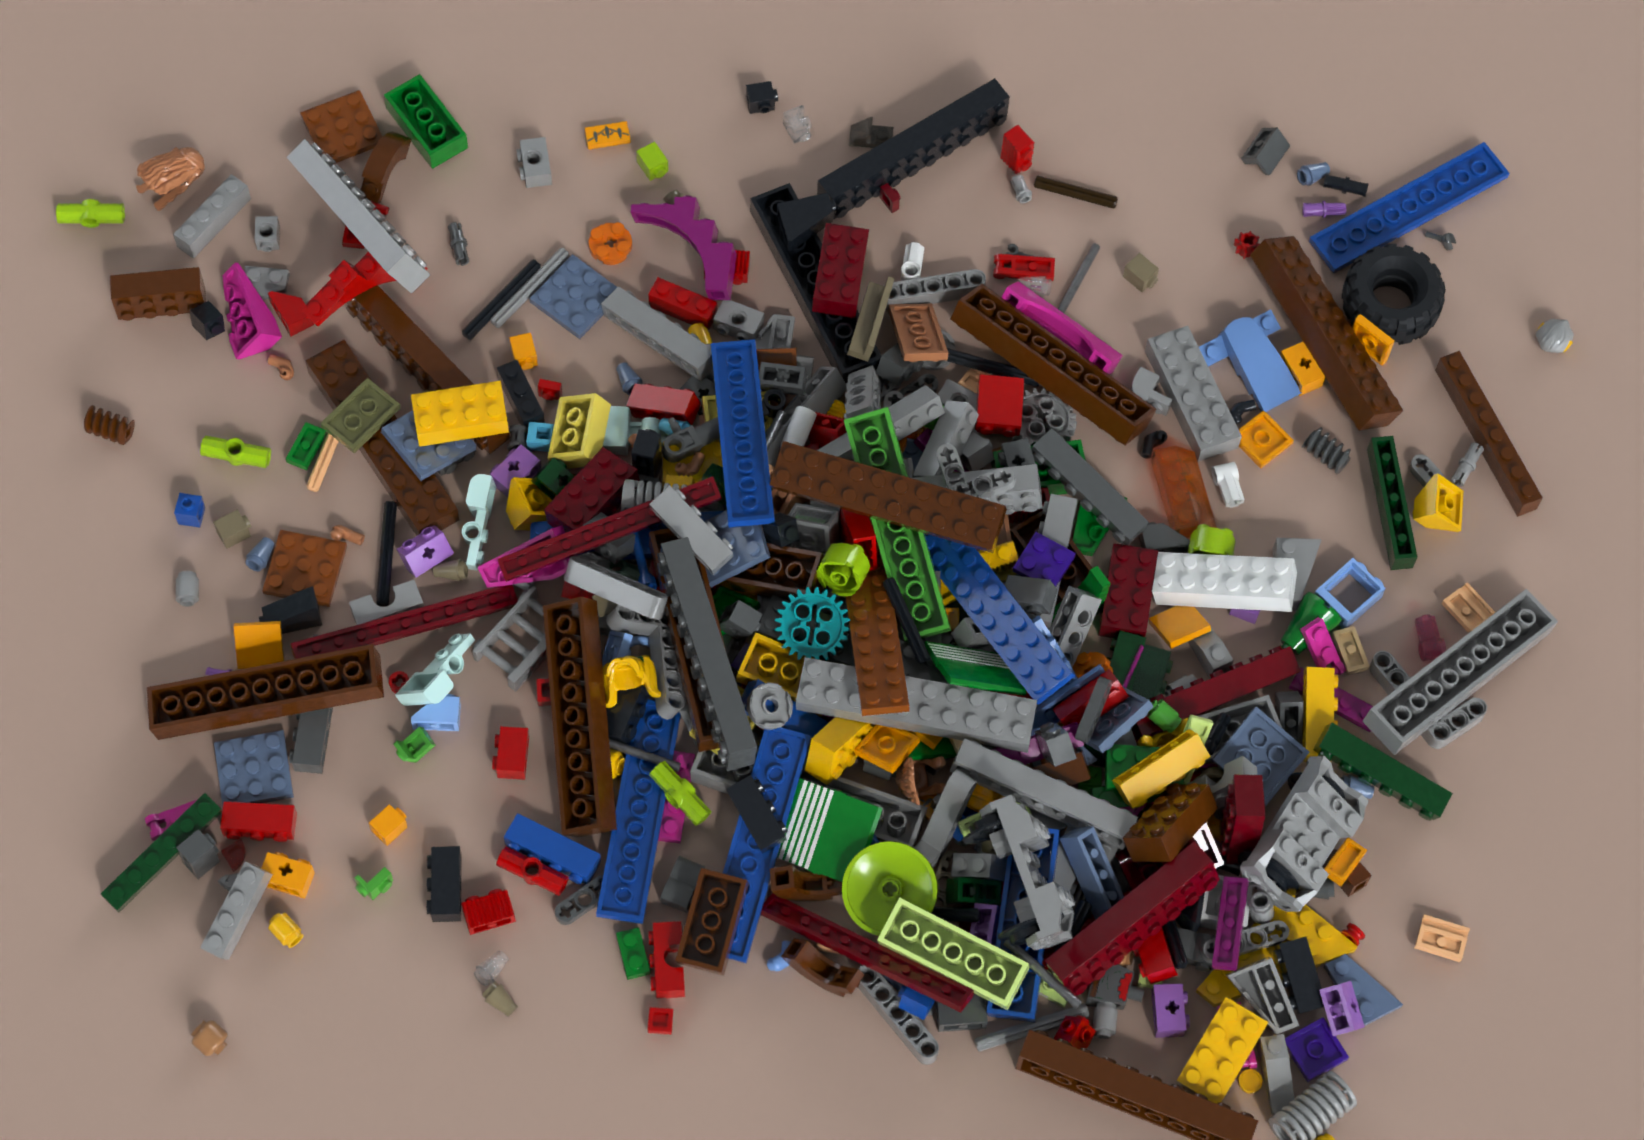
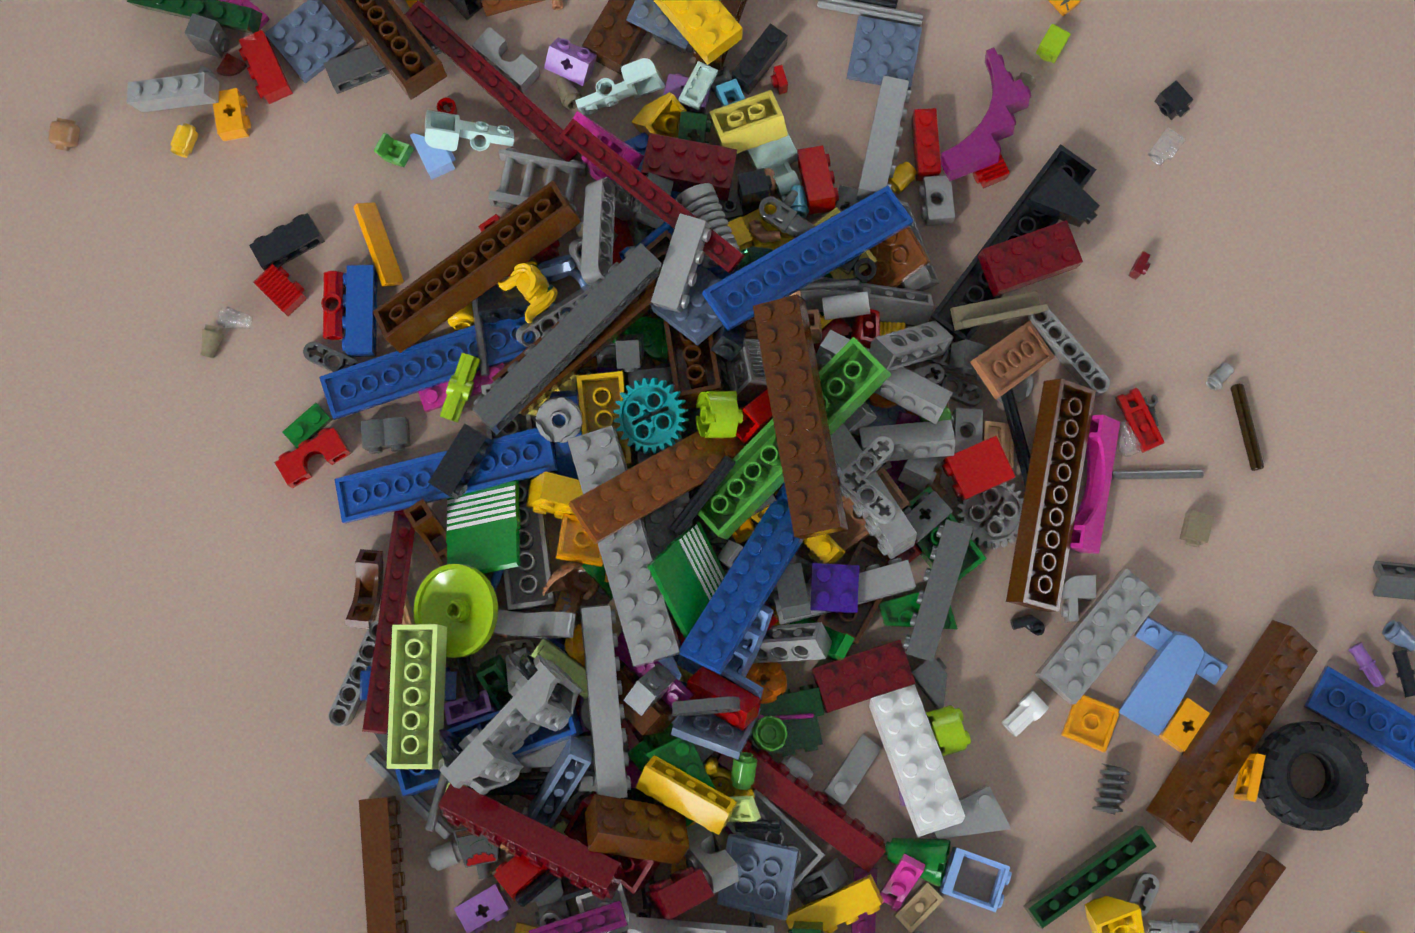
camera: 65 degrees right, 15 degrees up
(378, 884) = (259, 190): bright green bracket -> none
(386, 553) = (552, 34): black axle -> none
(388, 824) = (314, 169): light orange brick -> none
(496, 803) = (378, 244): none -> light orange tile
(512, 753) = (427, 231): red brick -> none
(519, 453) = (698, 85): none -> light aqua plate
(524, 350) = (803, 38): light orange brick -> none
(607, 232) = (954, 41): orange plate -> none
(627, 377) = (829, 138): sand blue cone -> none
(660, 1020) = (257, 479): red plate -> none
(712, 921) = (352, 475): reddish brown brick -> none
(776, 333) = (942, 239): light grey wing -> none
(778, 963) = (355, 546): medium blue arm -> none
(783, 377) = (890, 265): dark grey brick -> none
(868, 135) = (1194, 215): clear smoke slope -> none
(912, 261) = (1085, 319): white piece -> none
(916, 147) = (1201, 260): black brick -> none
(1017, 149) = (1255, 352): red brick -> none
(1076, 1031) = (414, 836): red brick -> none
(1142, 683) = (769, 733): none -> bright green hair
(1179, 625) = (856, 738): light orange tile -> none
(1182, 489) = (993, 677): clear orange slope -> none
(1241, 407) = (1107, 686): black arm -> none
(1246, 244) = (1278, 613): red gear -> none
(1447, 239) = (1404, 795): dark grey hand -> none

